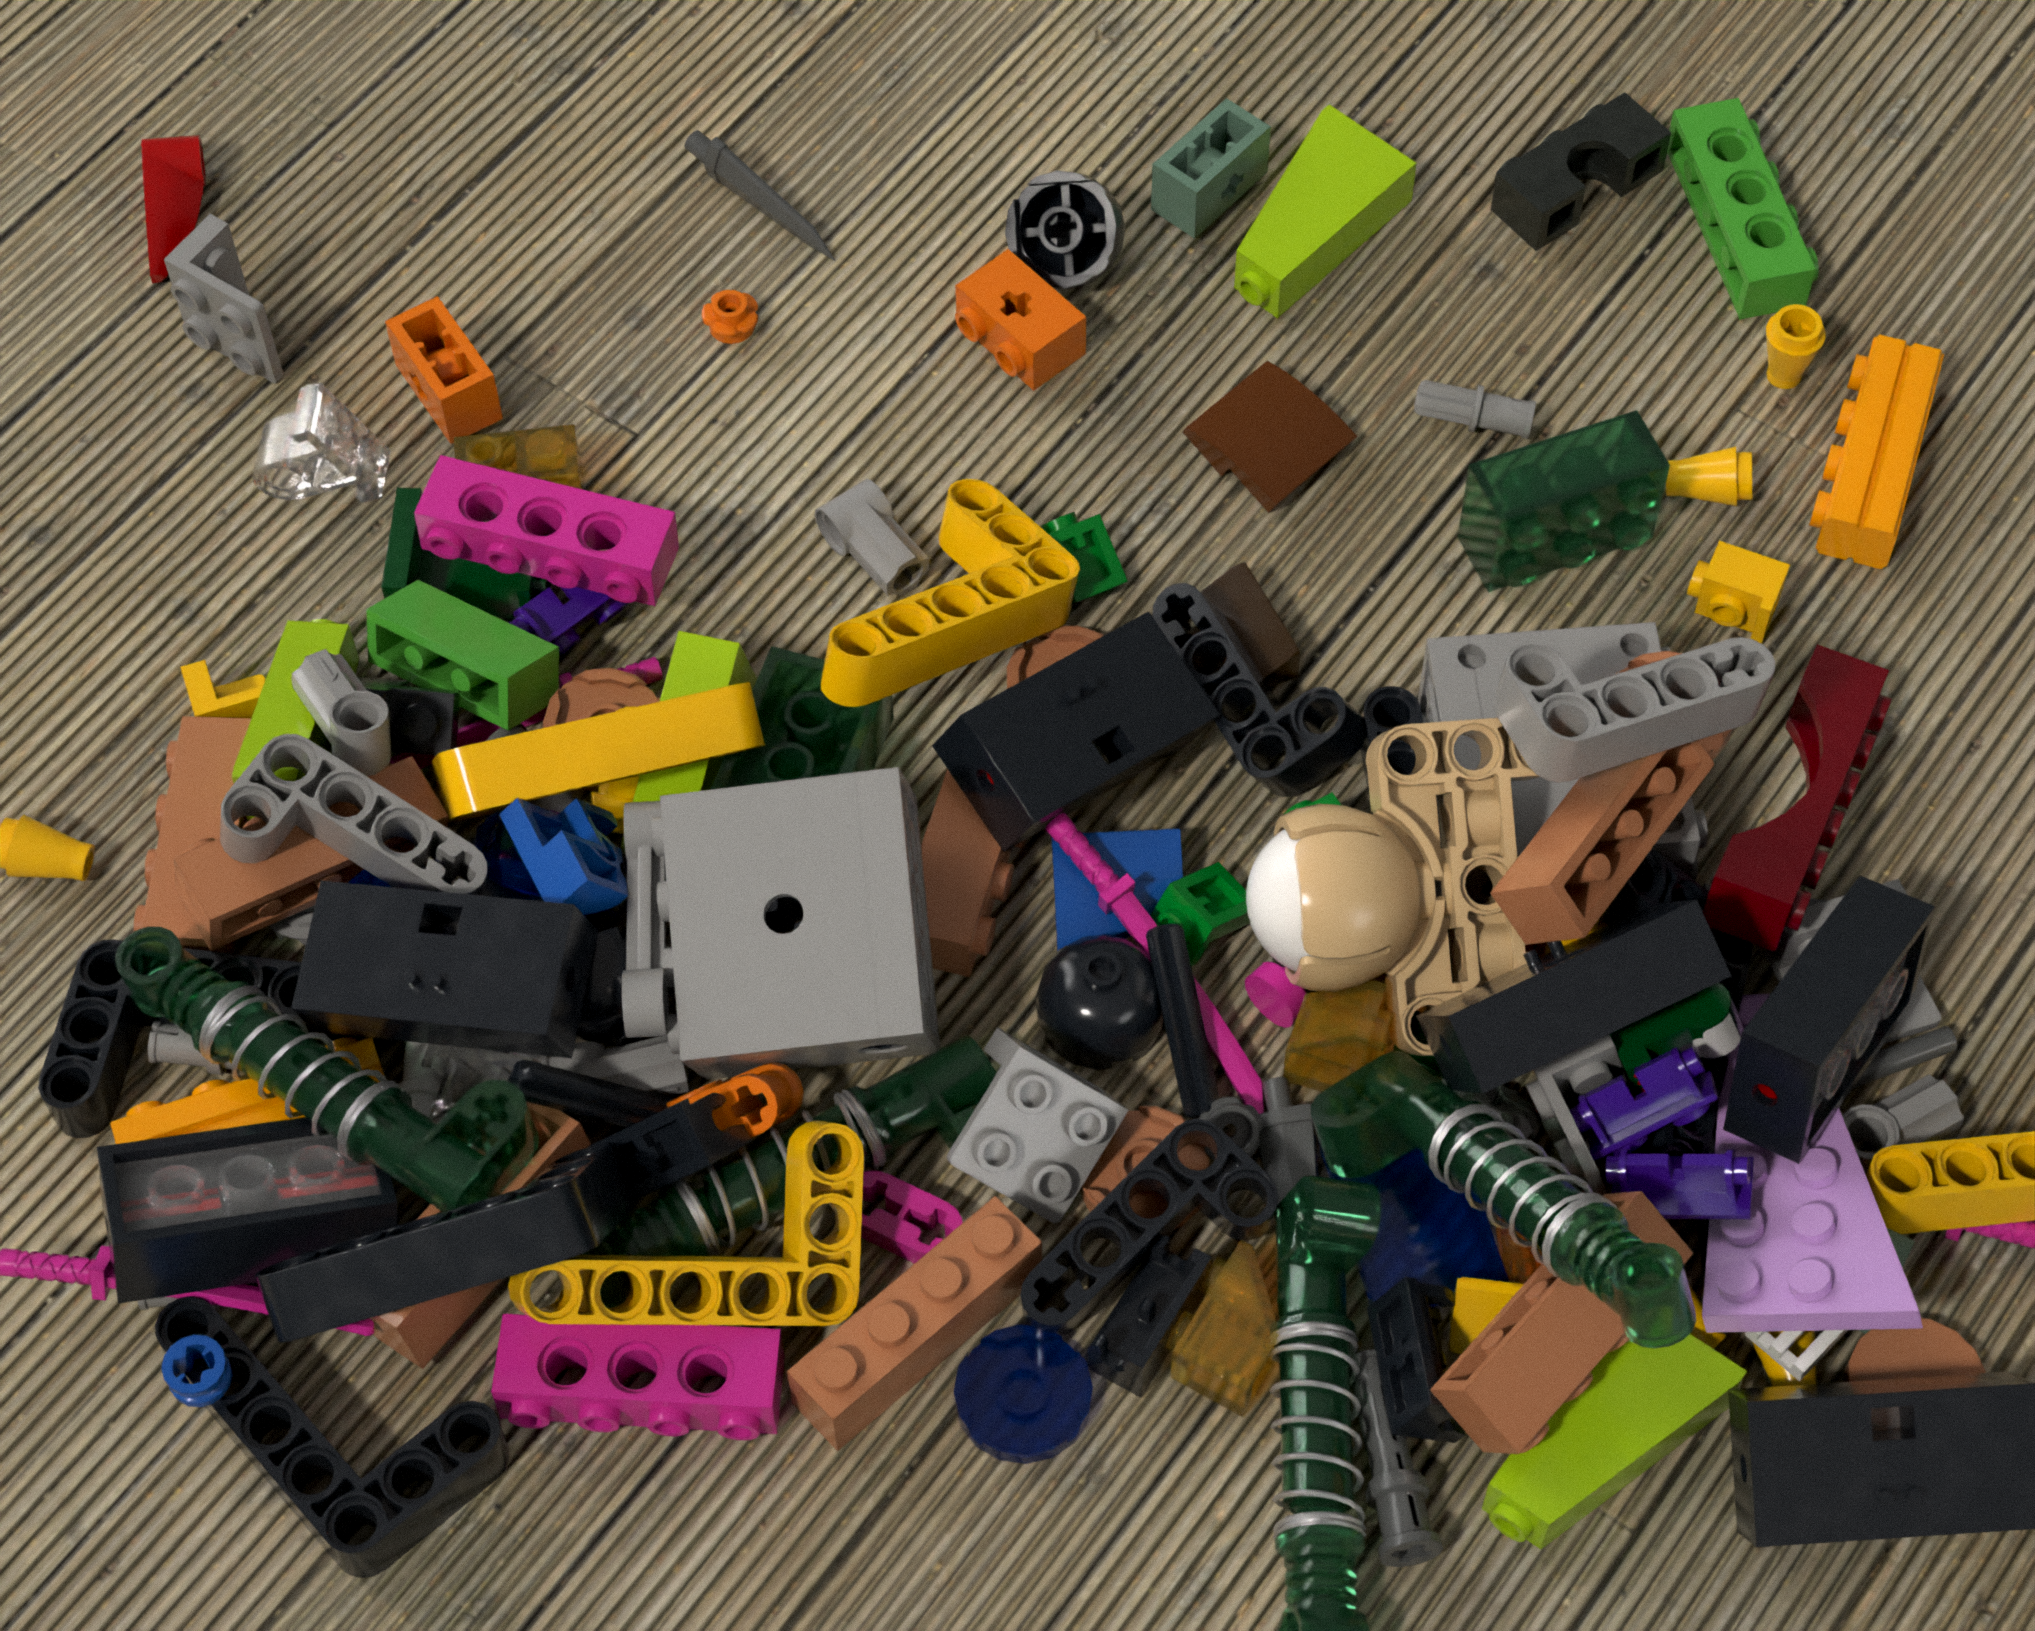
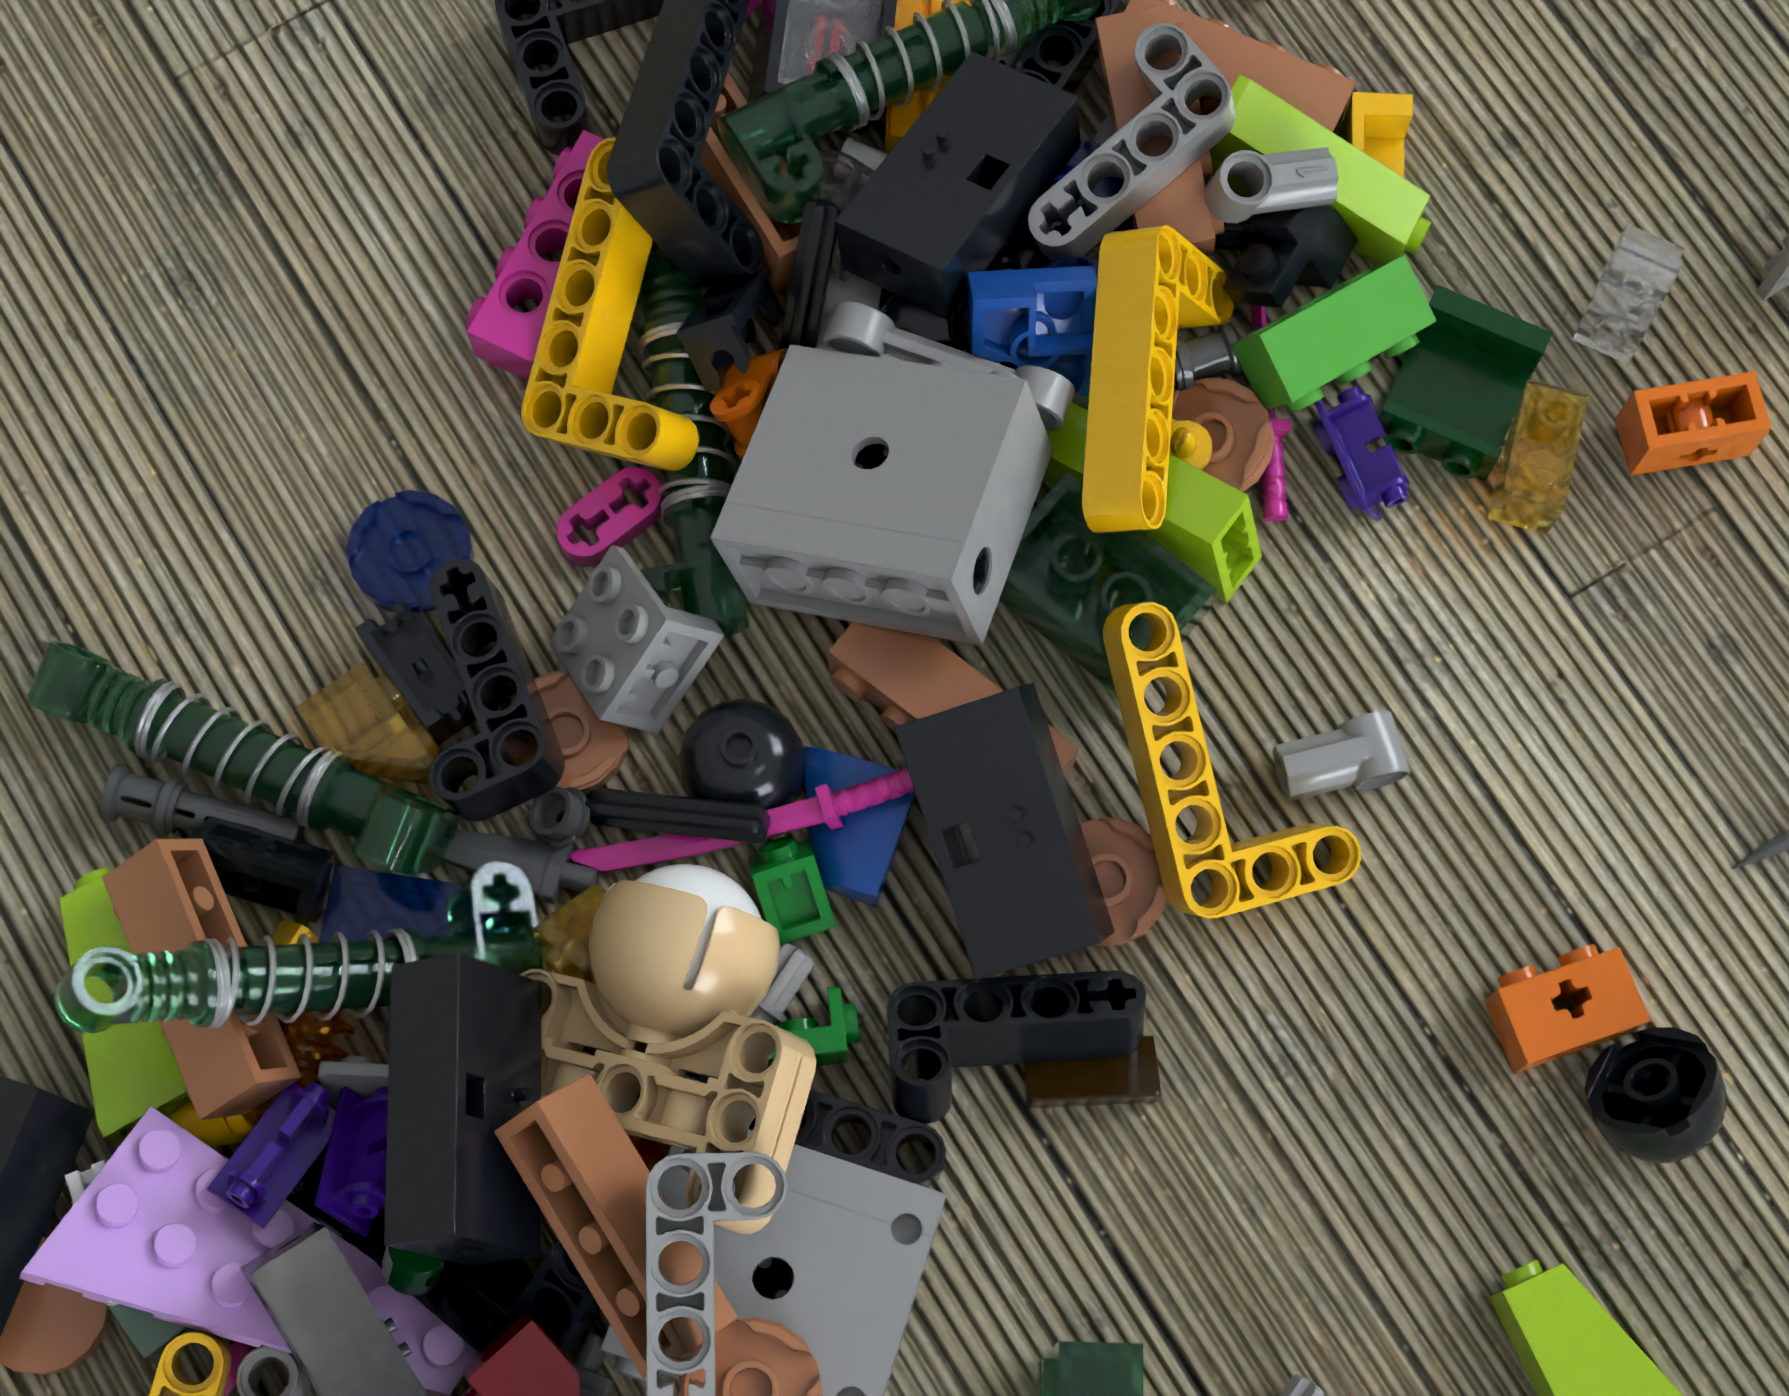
camera: 110 degrees right, 15 degrees up
(577, 523) = (1380, 514): dark pink brick -> none
(731, 316) = (1681, 746): orange plate -> none
(914, 1323) = (499, 481): nougat brick -> none
(1092, 549) = (1240, 944): green bracket -> none
(1210, 168) = (1699, 1294): sand green brick -> none
(1270, 434) = (1323, 1207): reddish brown slope -> none

